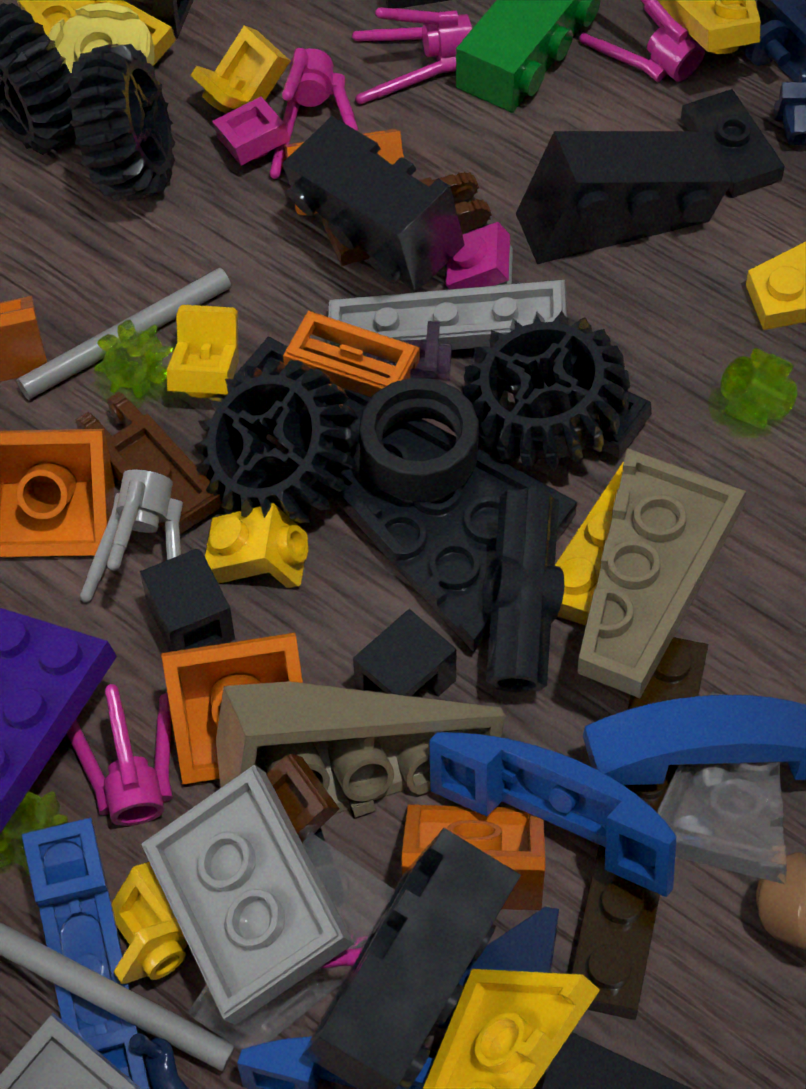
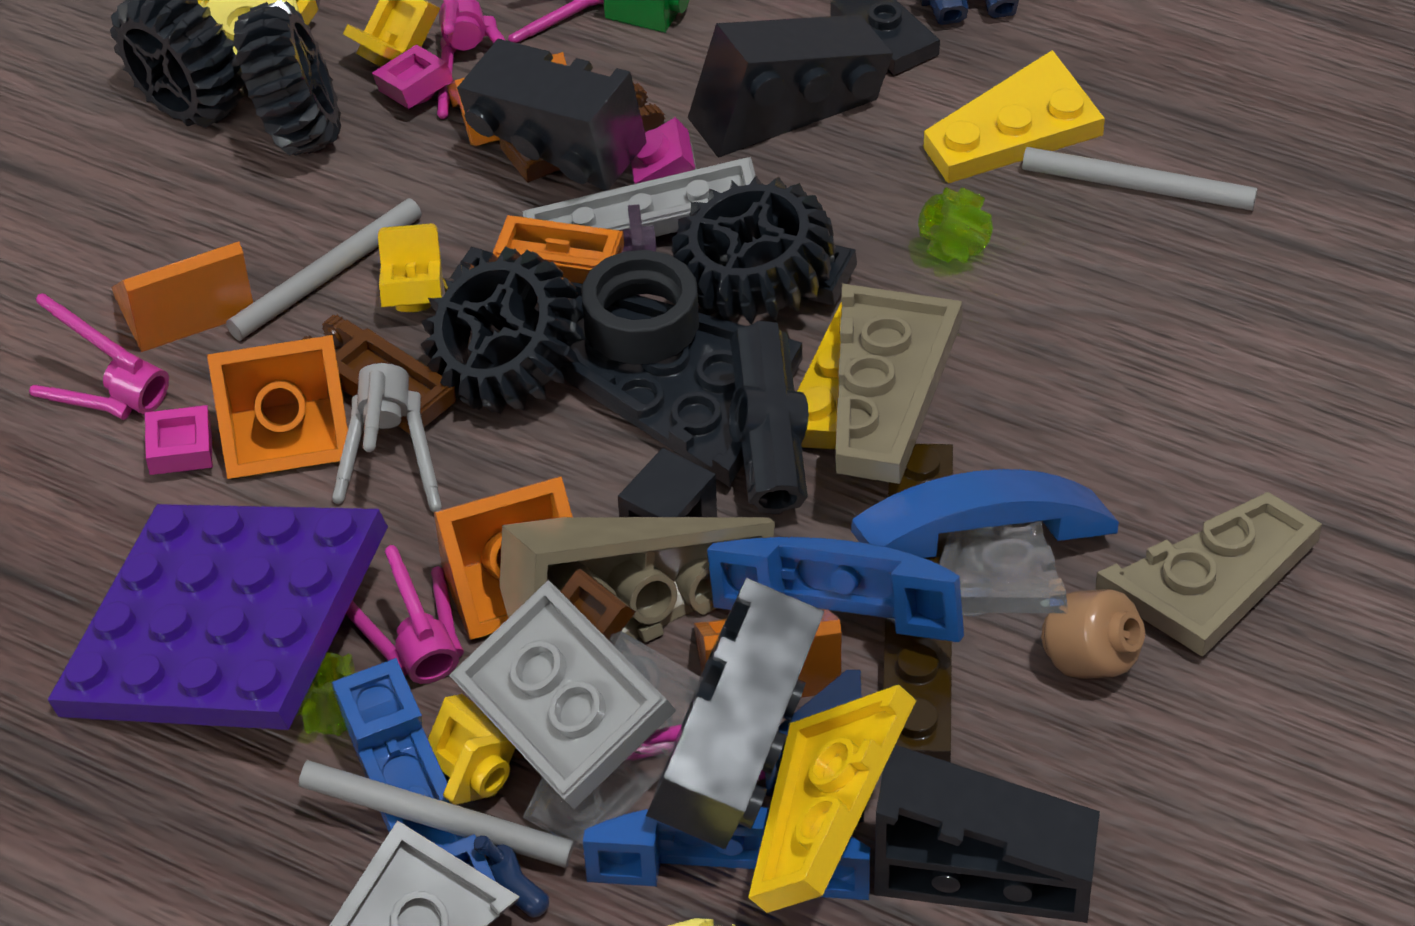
camera: 10 degrees left, 10 degrees down
(130, 373) = (339, 299): clear neon green gear -> none
(187, 602) = (439, 475): black panel -> none
(257, 546) = (497, 424): yellow bracket -> none

